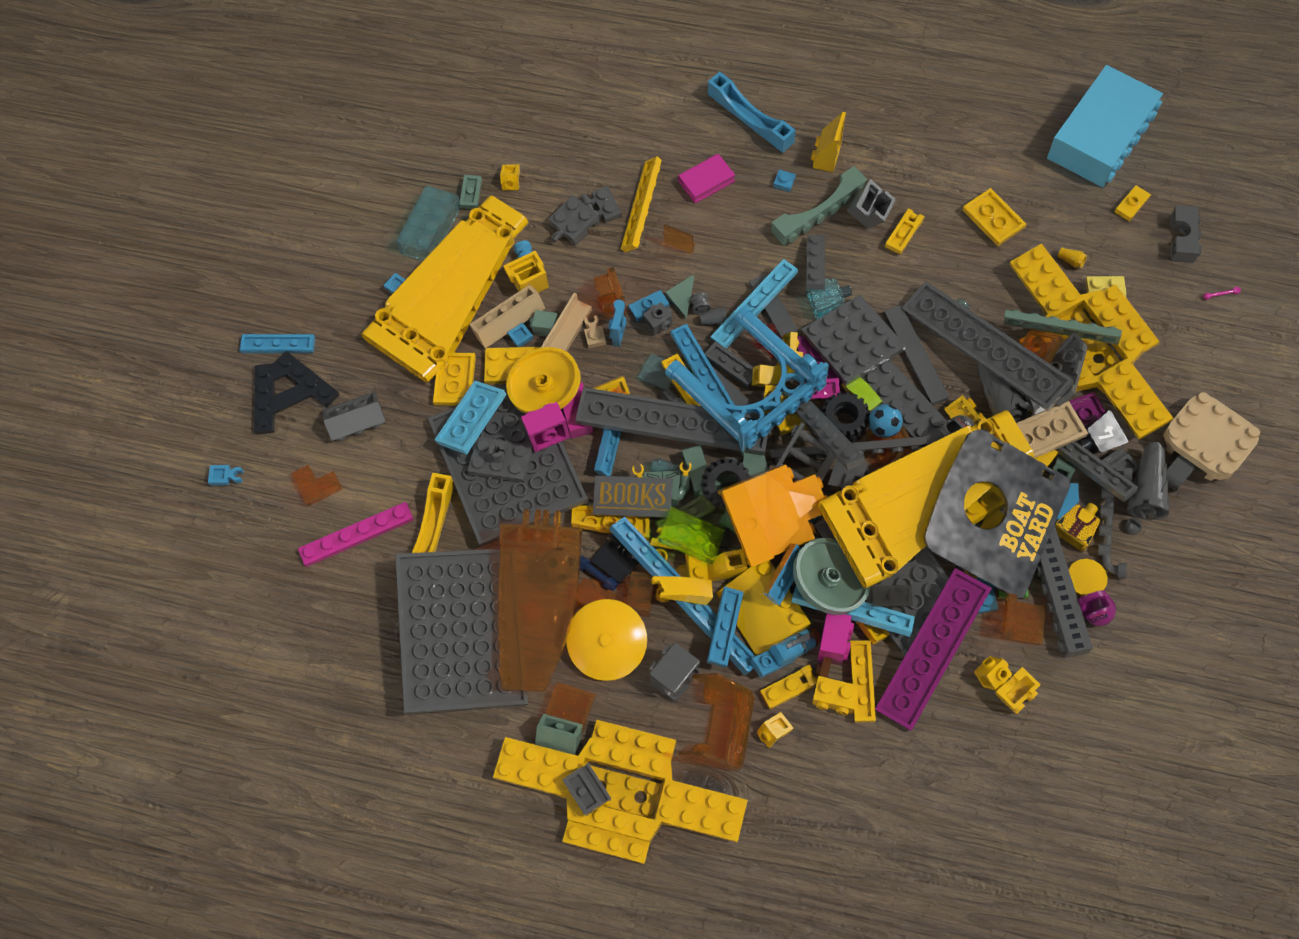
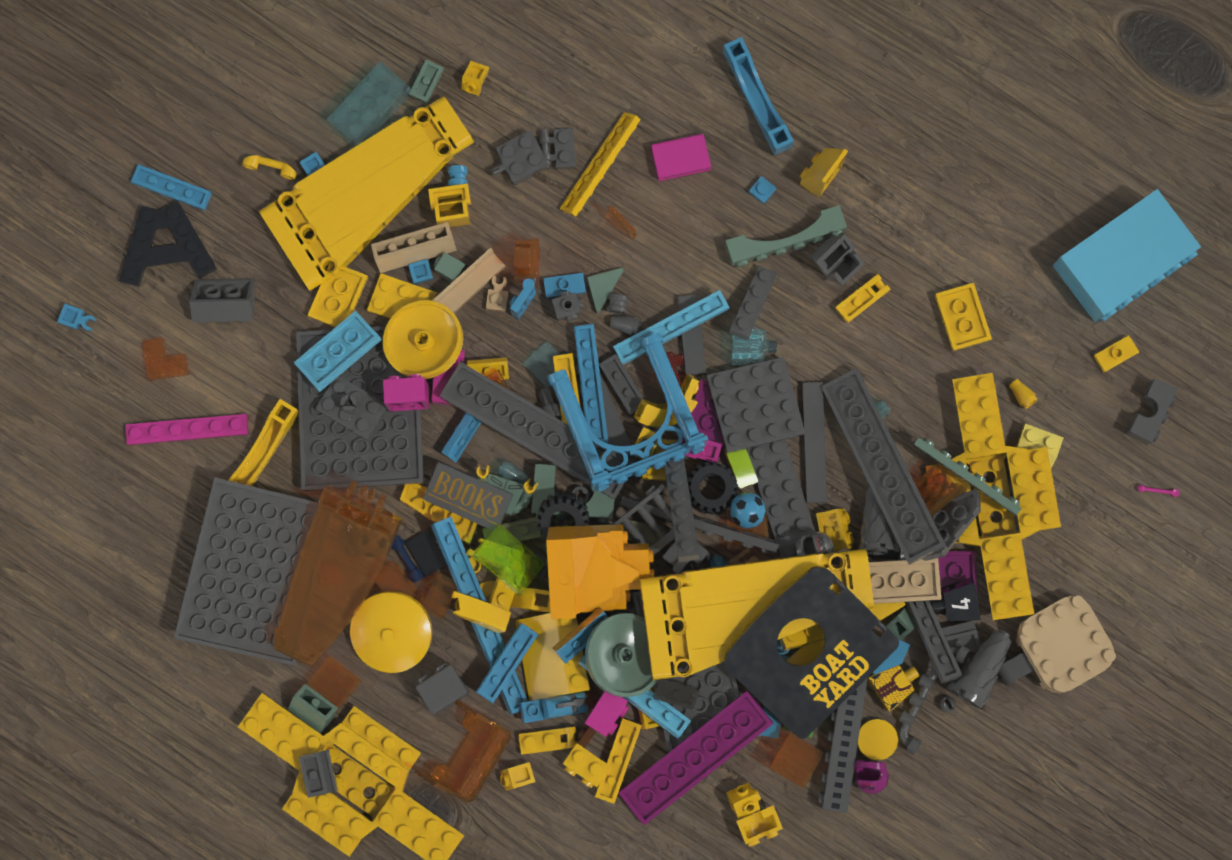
camera: 15 degrees right, 15 degrees up
(342, 298) = (252, 163): none -> yellow bar

